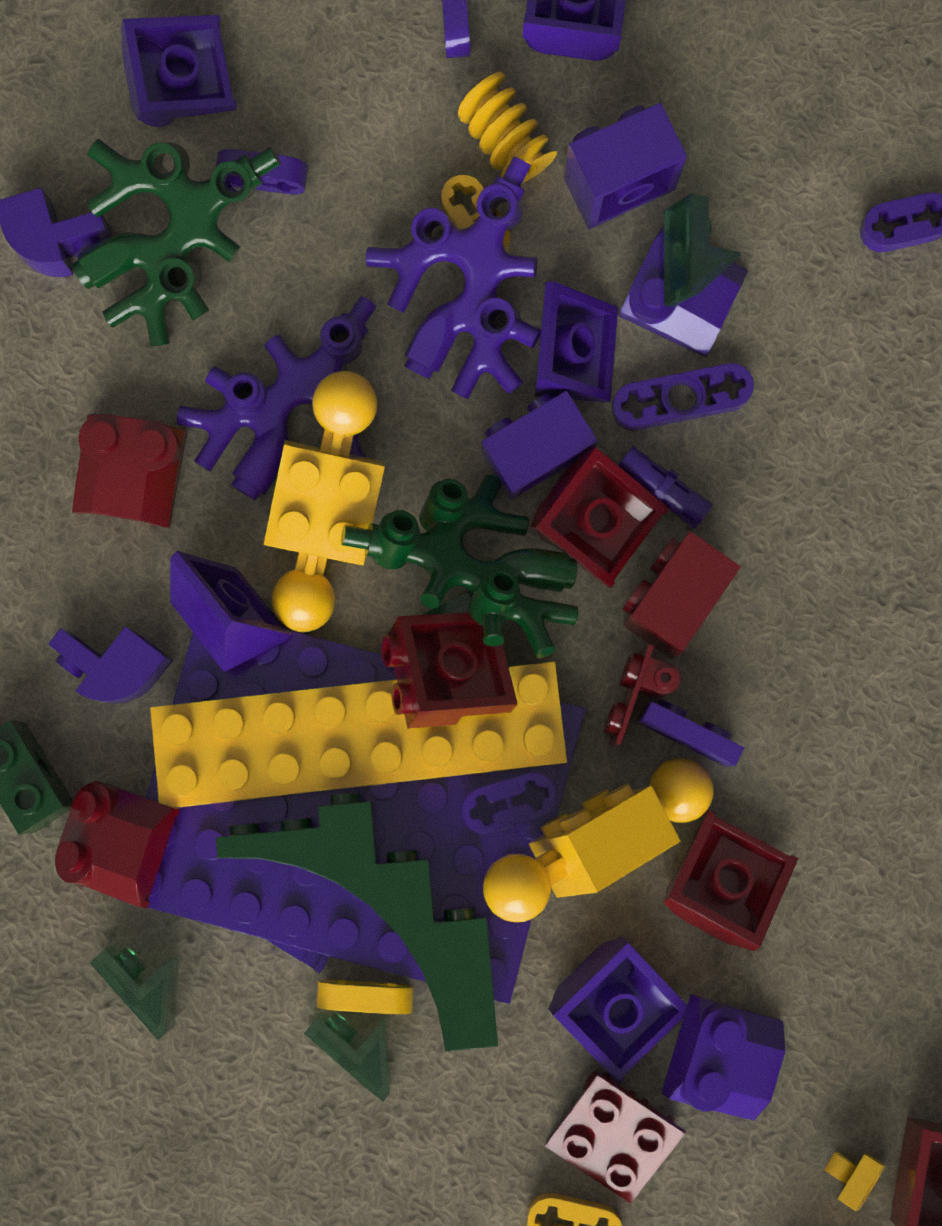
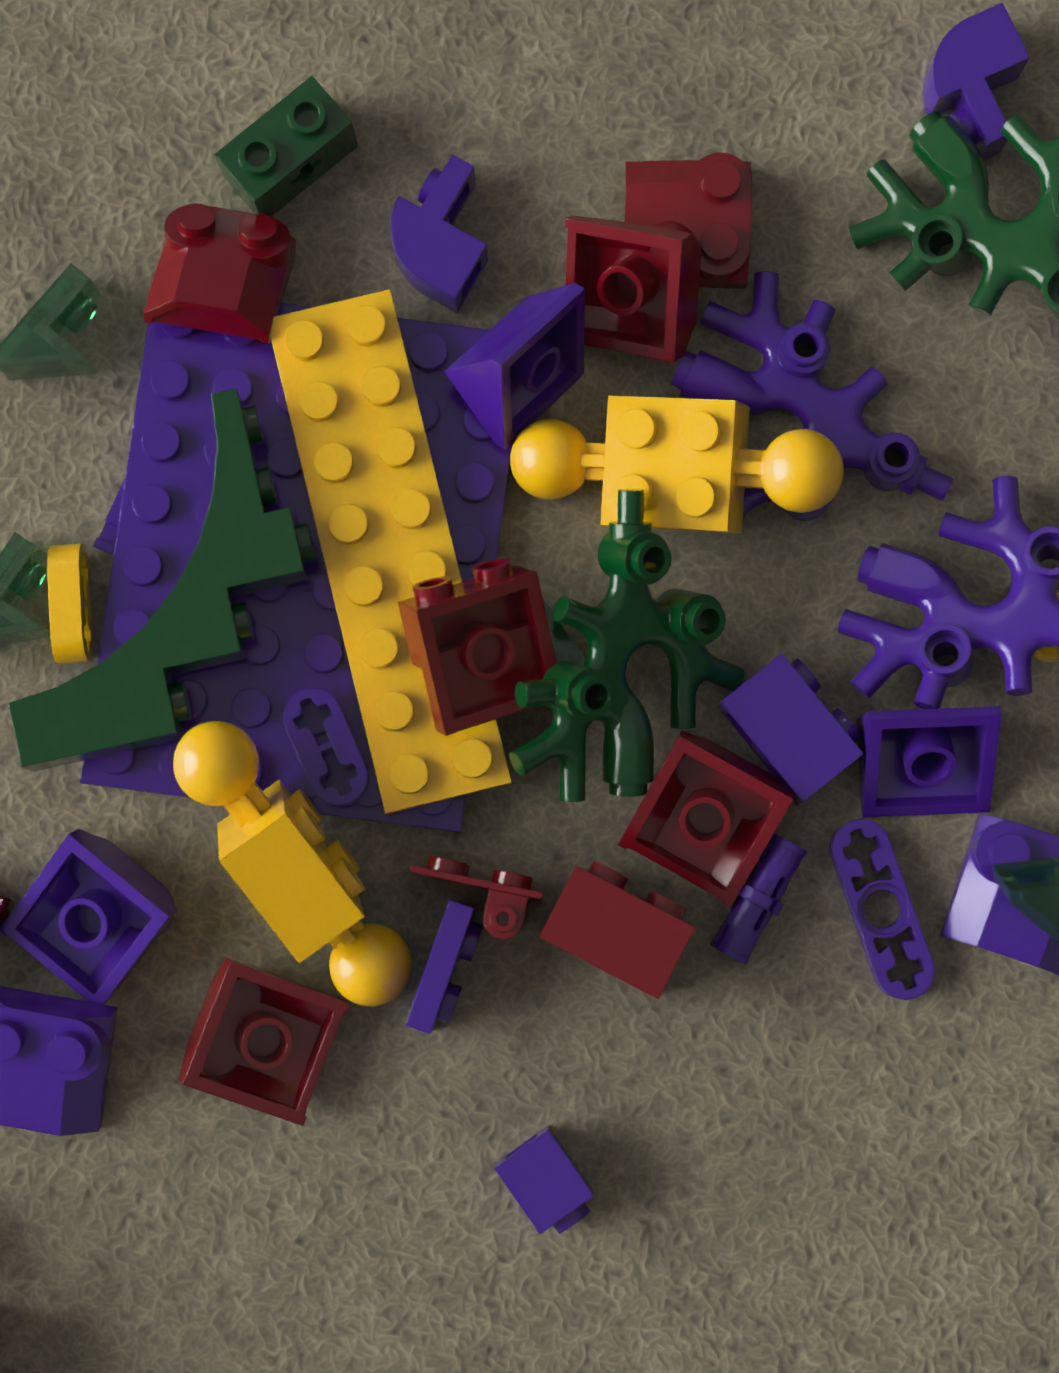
camera: 85 degrees right, 0 degrees up
(174, 512) = (636, 284): none -> dark red slope
(860, 676) = (546, 1182): none -> dark purple brick

